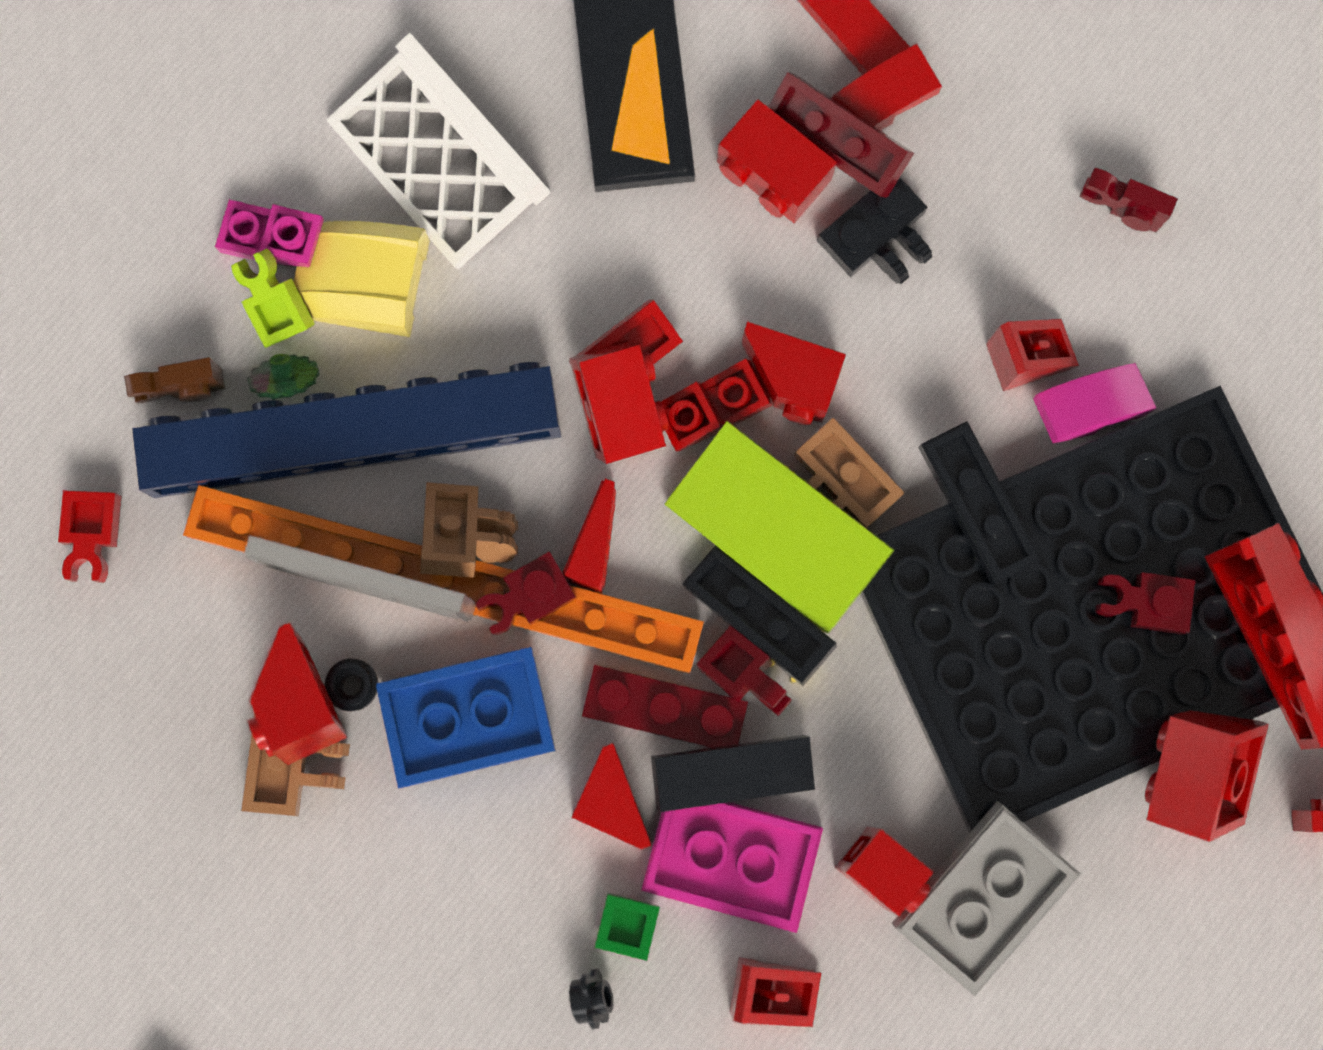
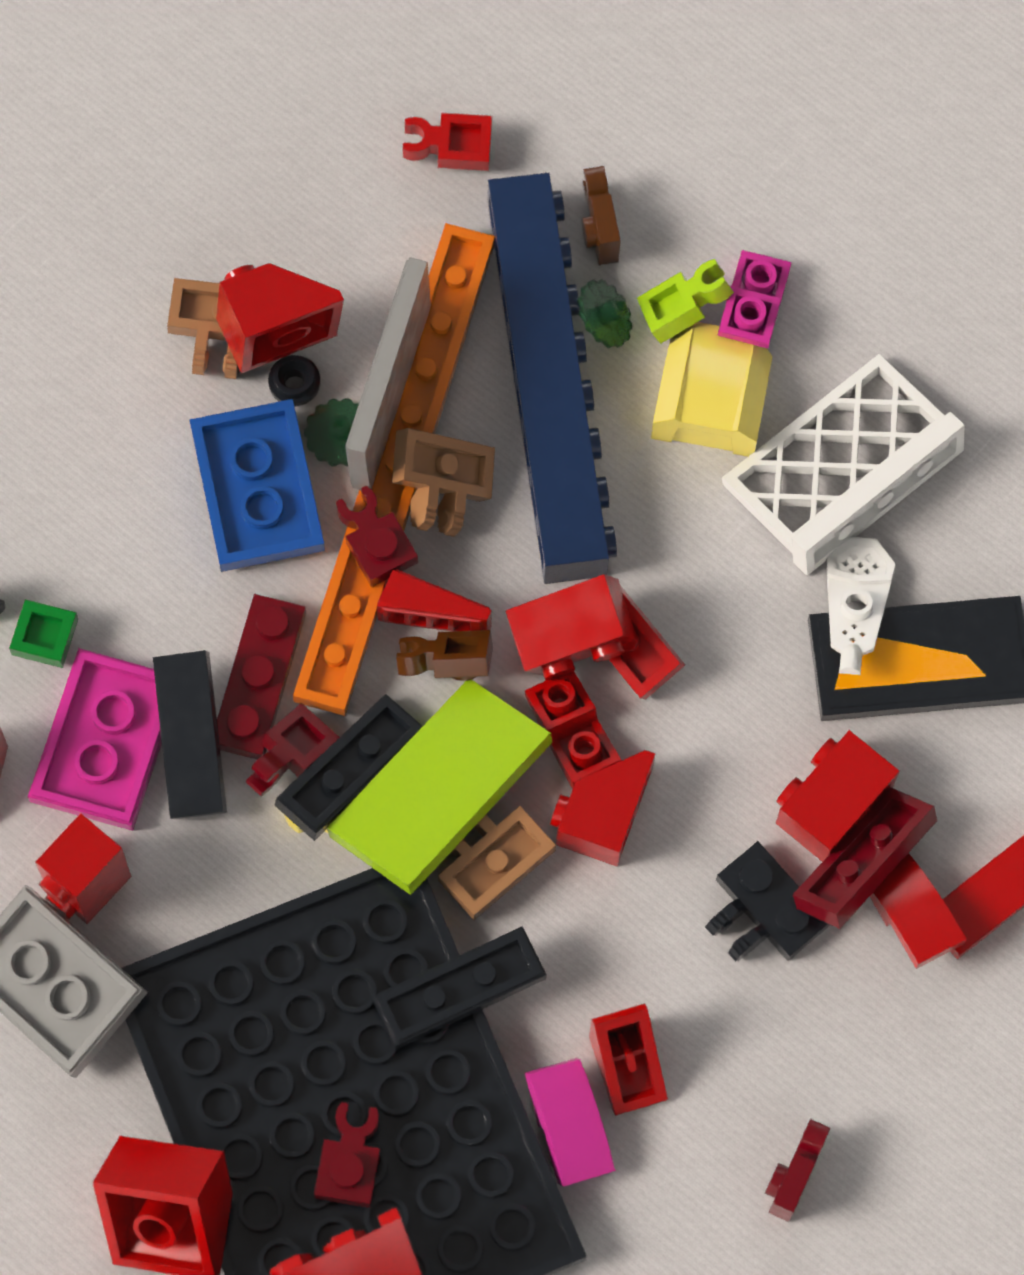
camera: 90 degrees right, 10 degrees down
(405, 638) = (330, 429): none -> clear green piece
(566, 137) = (865, 585): none -> white piece
(609, 802) = (167, 619): red slope -> none
(643, 516) = (452, 655): none -> reddish brown plate

